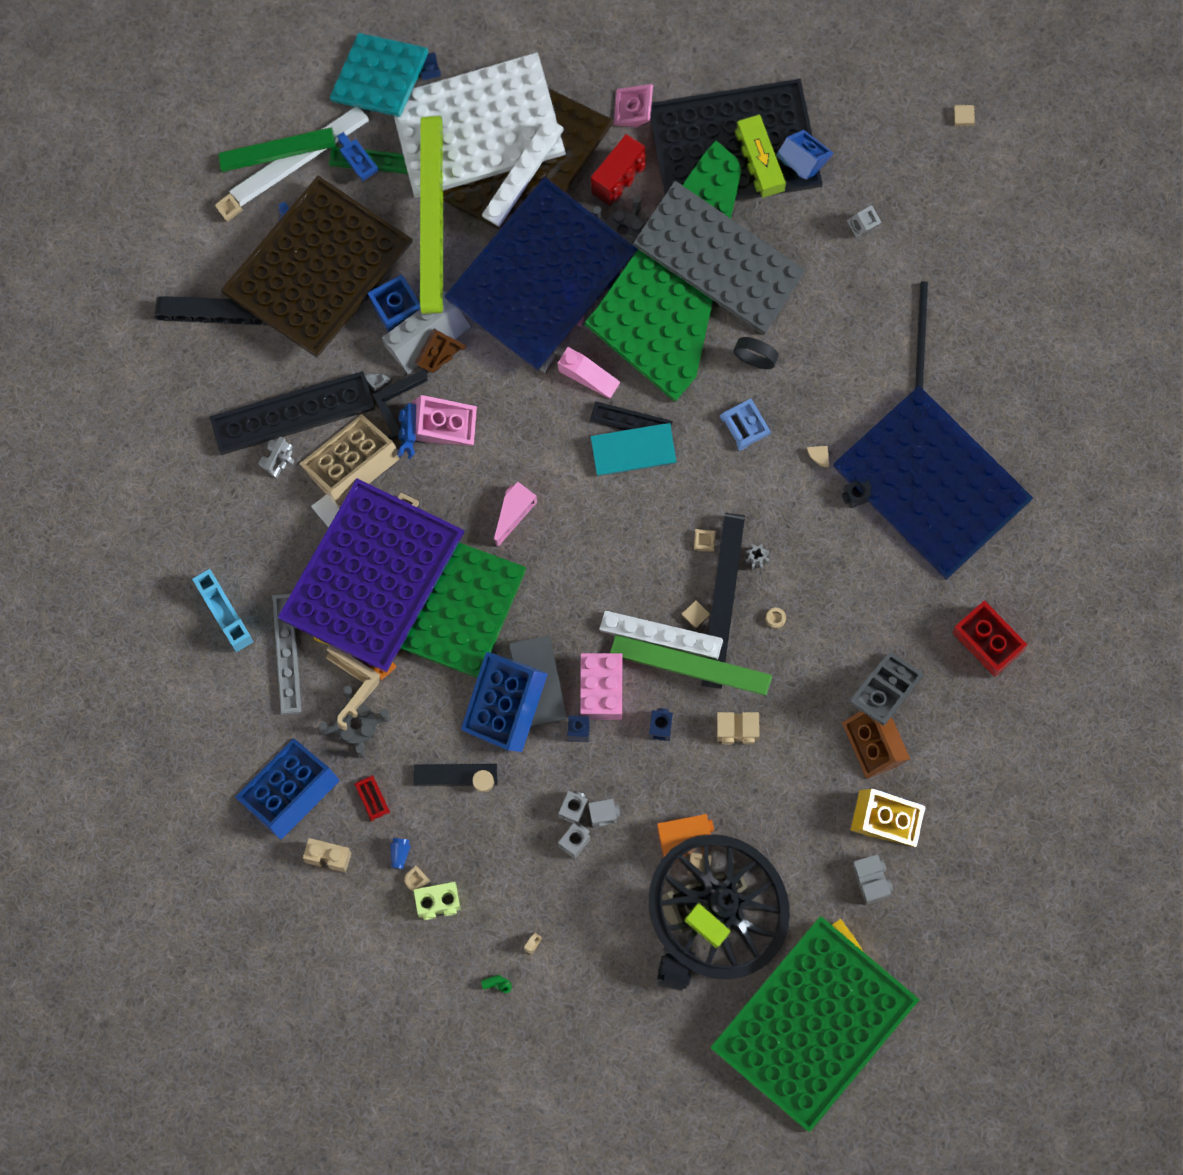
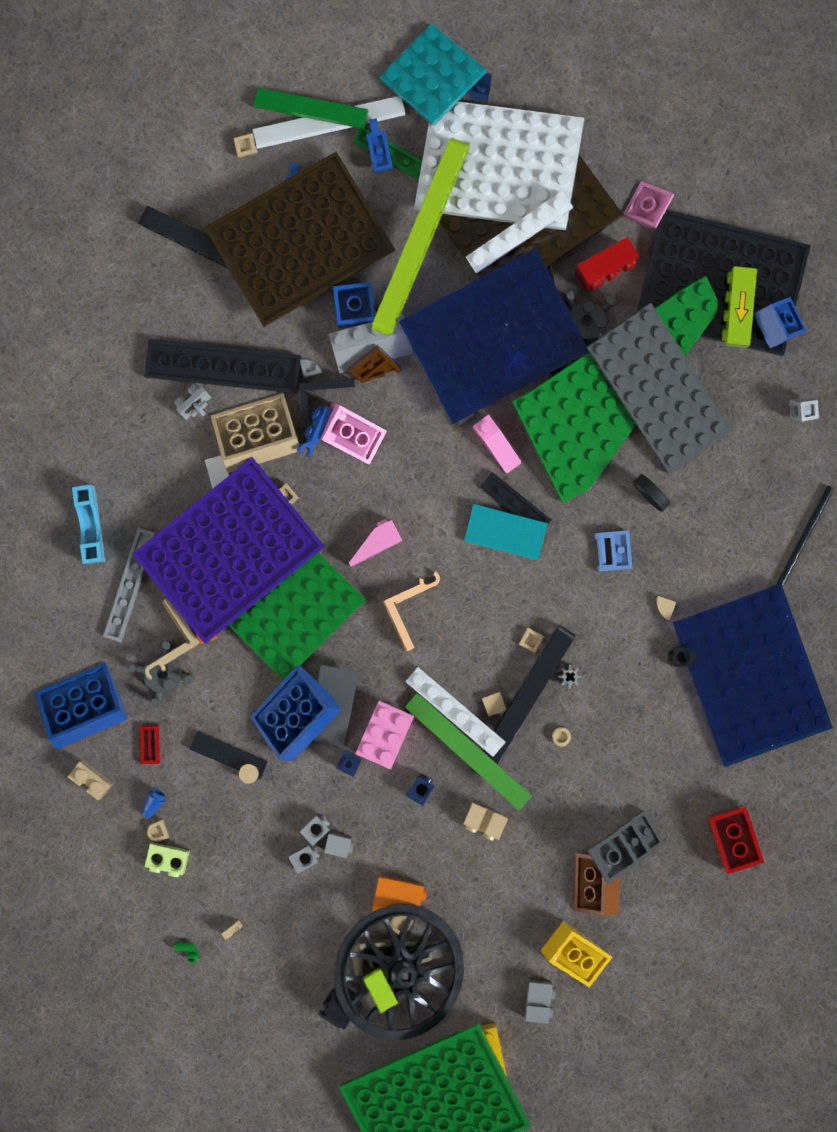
camera: 20 degrees right, 15 degrees up
(553, 565) = (394, 615): none -> light nougat hinge

